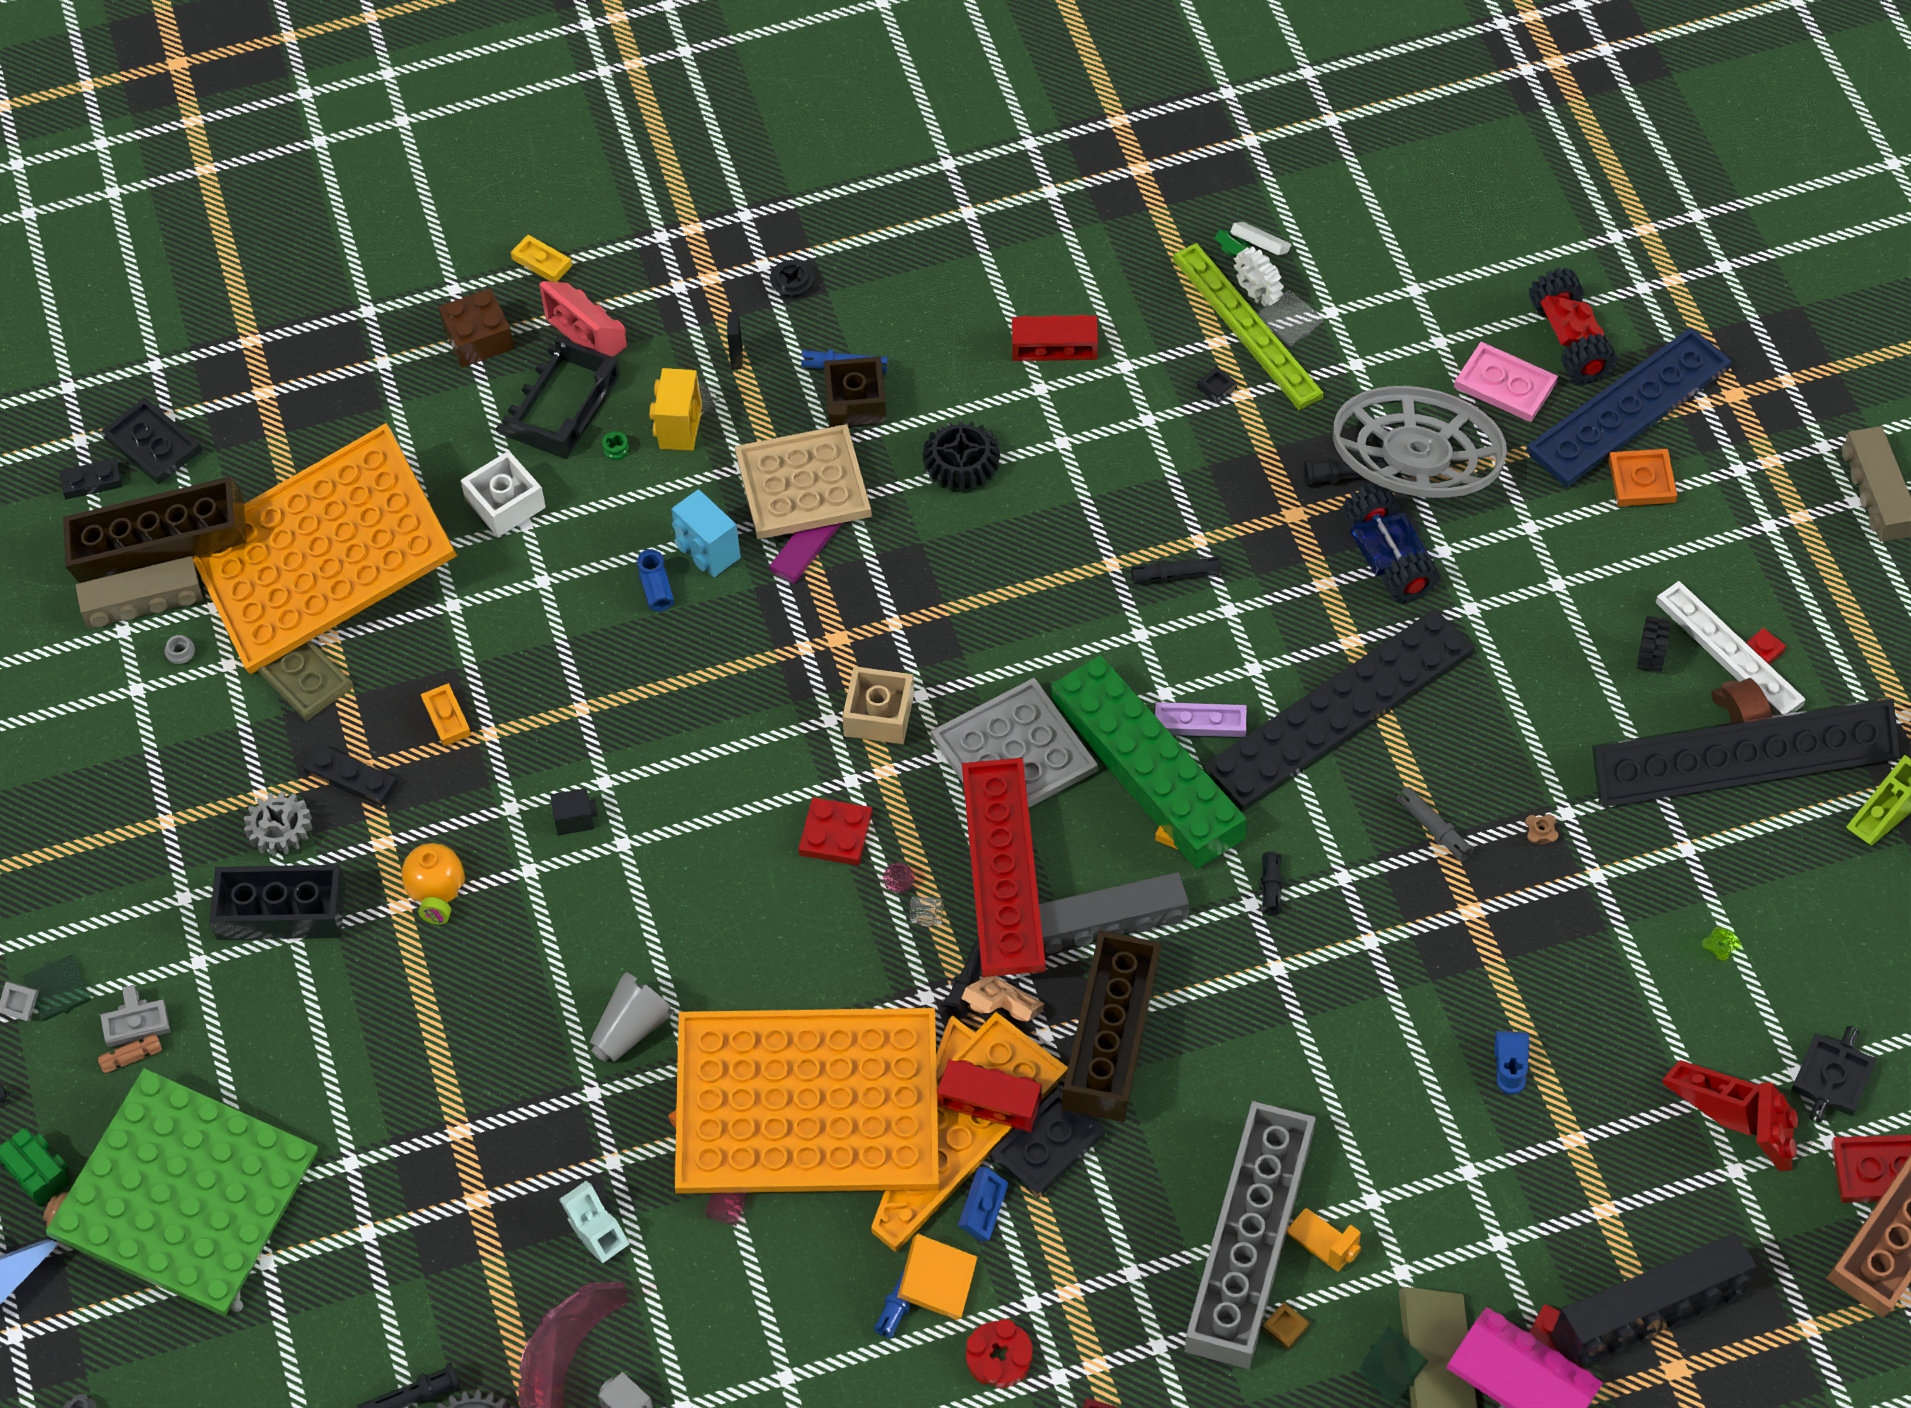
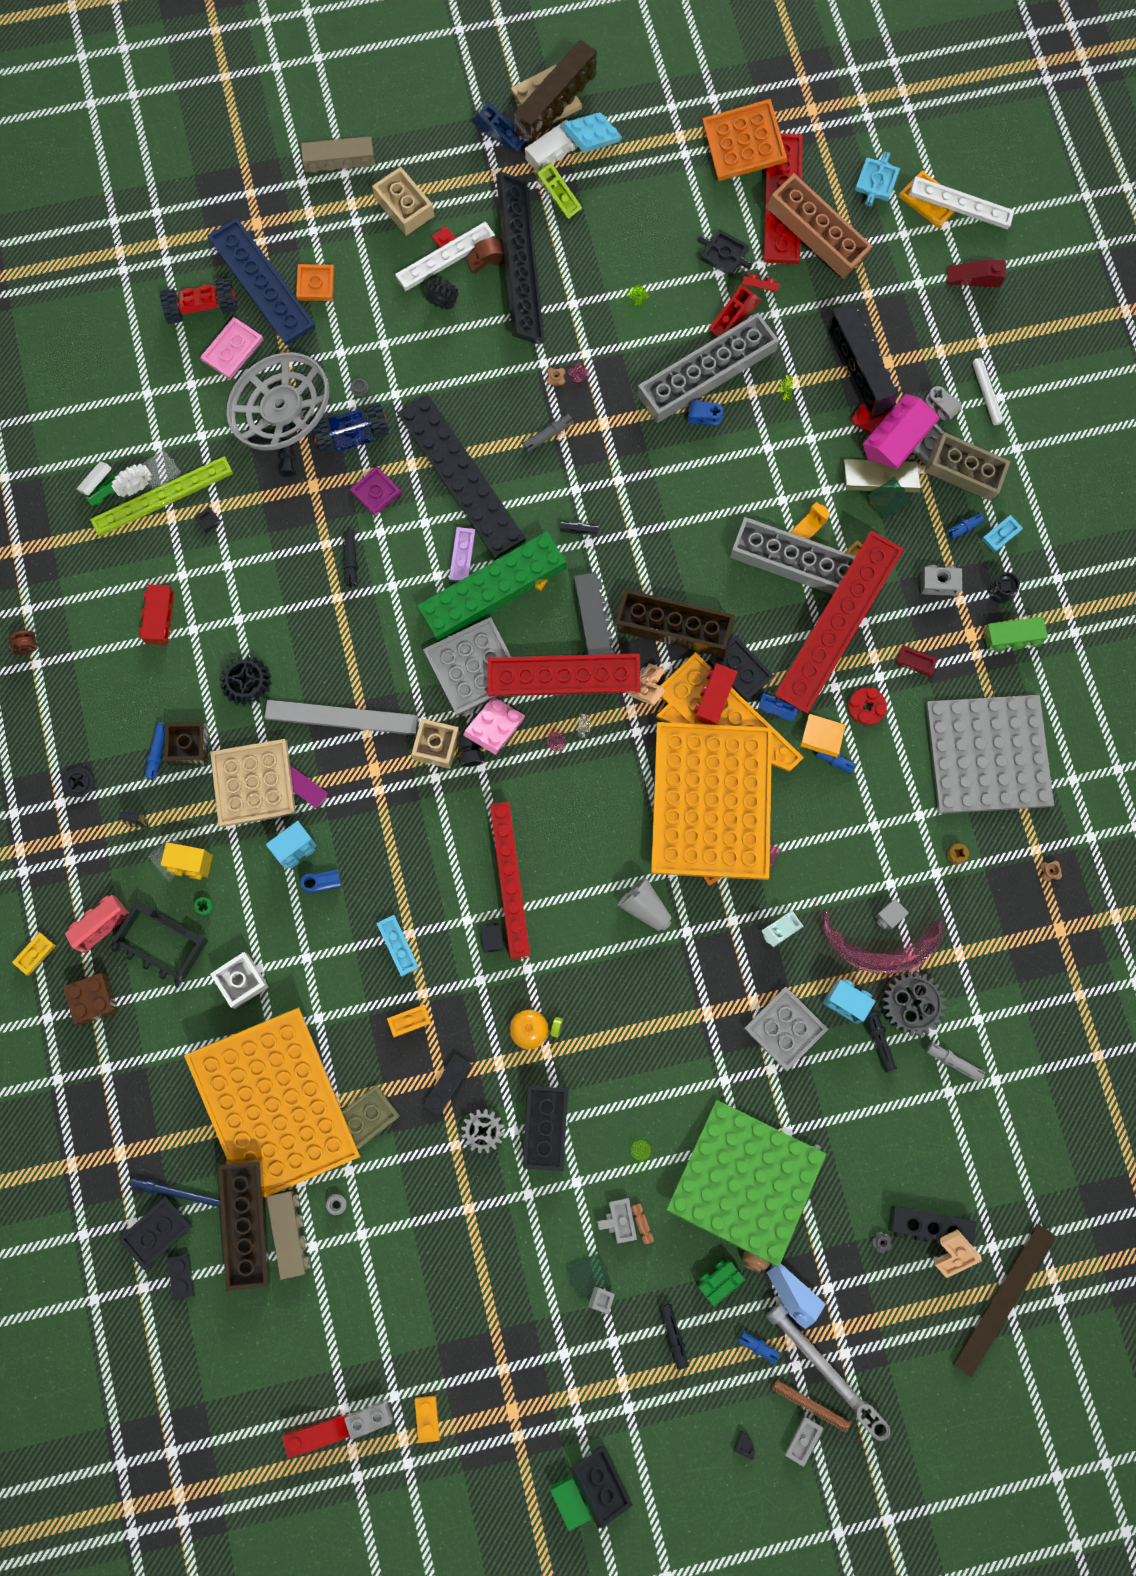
camera: 90 degrees left, 20 degrees up
(214, 431) = (152, 1186): none -> dark blue bar
(242, 1043) = (640, 1150): none -> clear neon green plate
(431, 1245) = (786, 1029): none -> light grey plate
(471, 1329) = (849, 1001): none -> medium azure brick
(560, 689) = (397, 945): none -> medium azure plate
(664, 826) = (510, 881): none -> red brick
(835, 831) = (518, 777): red plate -> none
(861, 758) = (471, 752): none -> black wheel
(913, 780) = (494, 725): none -> bright pink plate
(916, 584) = (341, 717): none -> light grey tile
(970, 974) = (630, 705): black pin -> none
(993, 186) = (22, 642): none -> copper wheel
(1141, 1280) = (839, 622): none -> red plate
(1296, 595) = (375, 491): none -> magenta tile
(1471, 555) = (359, 387): none -> dark grey plate
(1553, 869) = (578, 377): none -> clear pink plate
(1585, 1189) = (787, 387): none -> clear neon green plate
(1597, 1054) = (707, 367): none -> light grey brick
(1812, 577) = (403, 201): none -> tan brick

